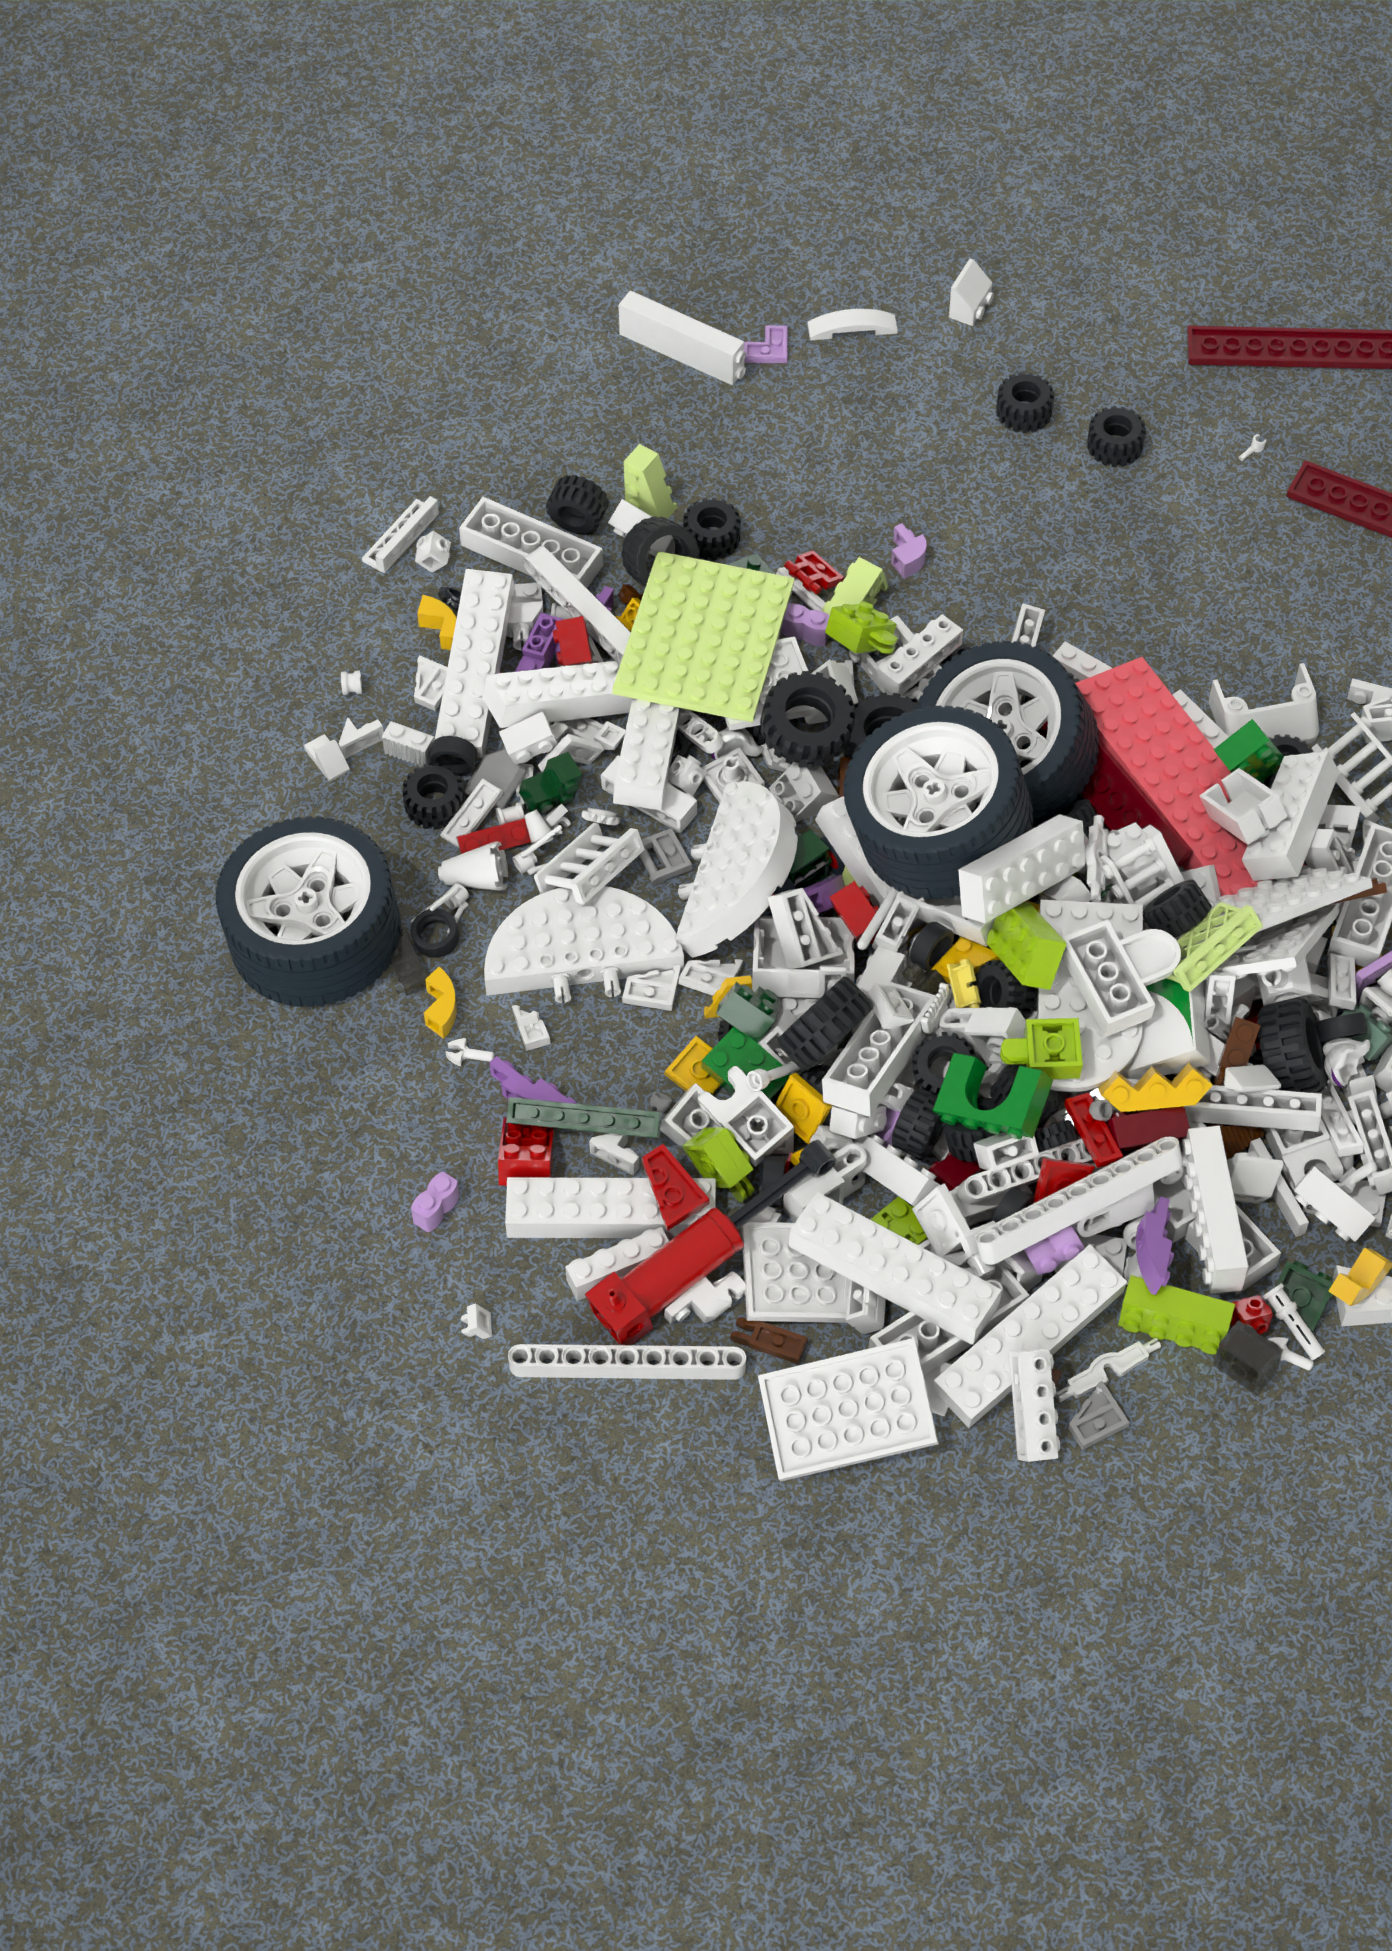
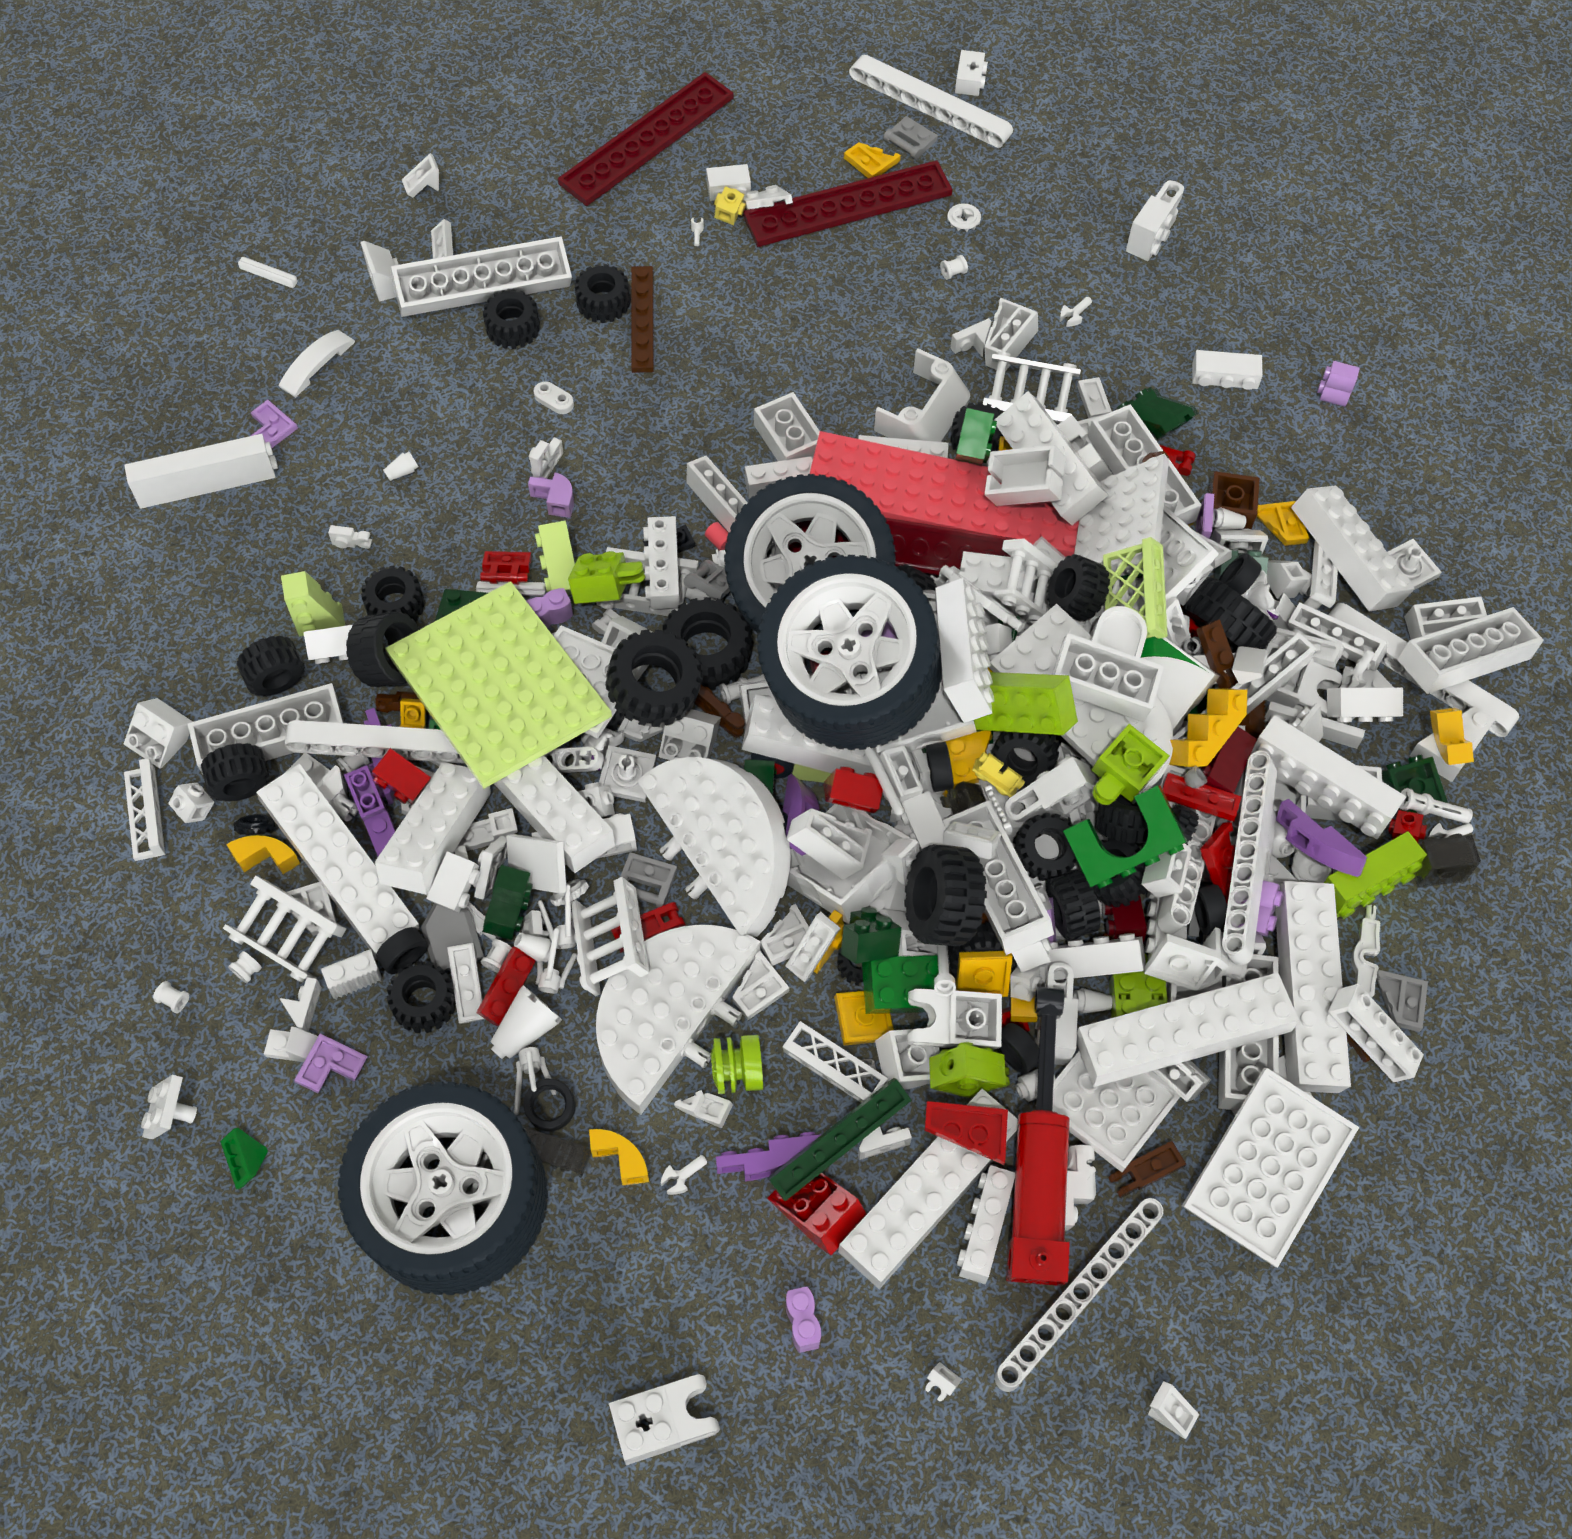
camera: 50 degrees left, 5 degrees up
(211, 722) = (165, 1108): none -> white plate
(226, 794) = (243, 1156): none -> green slope
(283, 1170) = (671, 1421): none -> white brick
(289, 662) = (171, 997): none -> white bush
(334, 779) = (329, 1056): none -> lavender tile
(420, 681) = (305, 917): none -> white fence
(463, 488) = (157, 731): none -> white slope
(477, 549) = (235, 772): none -> black tyre
(563, 838) = (566, 931): none -> white plant
(577, 1016) = (737, 1064): none -> lime wheel
(597, 774) = (541, 858): none -> white tile
(598, 1483) = (1173, 1410): none -> white slope
(632, 1072) = (824, 1069): none -> white fence
(636, 884) = (653, 924): none -> red plate
(711, 989) = (812, 946): none -> white tile
(729, 462) = (346, 537): none -> white plate
(824, 445) = (401, 466): none -> white cone
(864, 1203) = (1092, 1001): none -> white cone
(892, 234) = (267, 272): none -> white axle
(923, 521) = (545, 457): none -> white plate
(990, 480) = (552, 397): none -> white plate
(1032, 349) = (480, 275): none -> white brick
(1036, 314) = (442, 240): none -> white plate
(1085, 247) = (423, 174): none -> white slope
(1128, 480) = (642, 319): none -> reddish brown plate
(1134, 636) = (786, 428): none -> white brick
(1297, 446) = (729, 205): none -> light yellow brick
(1321, 429) = (729, 176): none -> white brick
(1329, 461) = (766, 198): none -> white wing

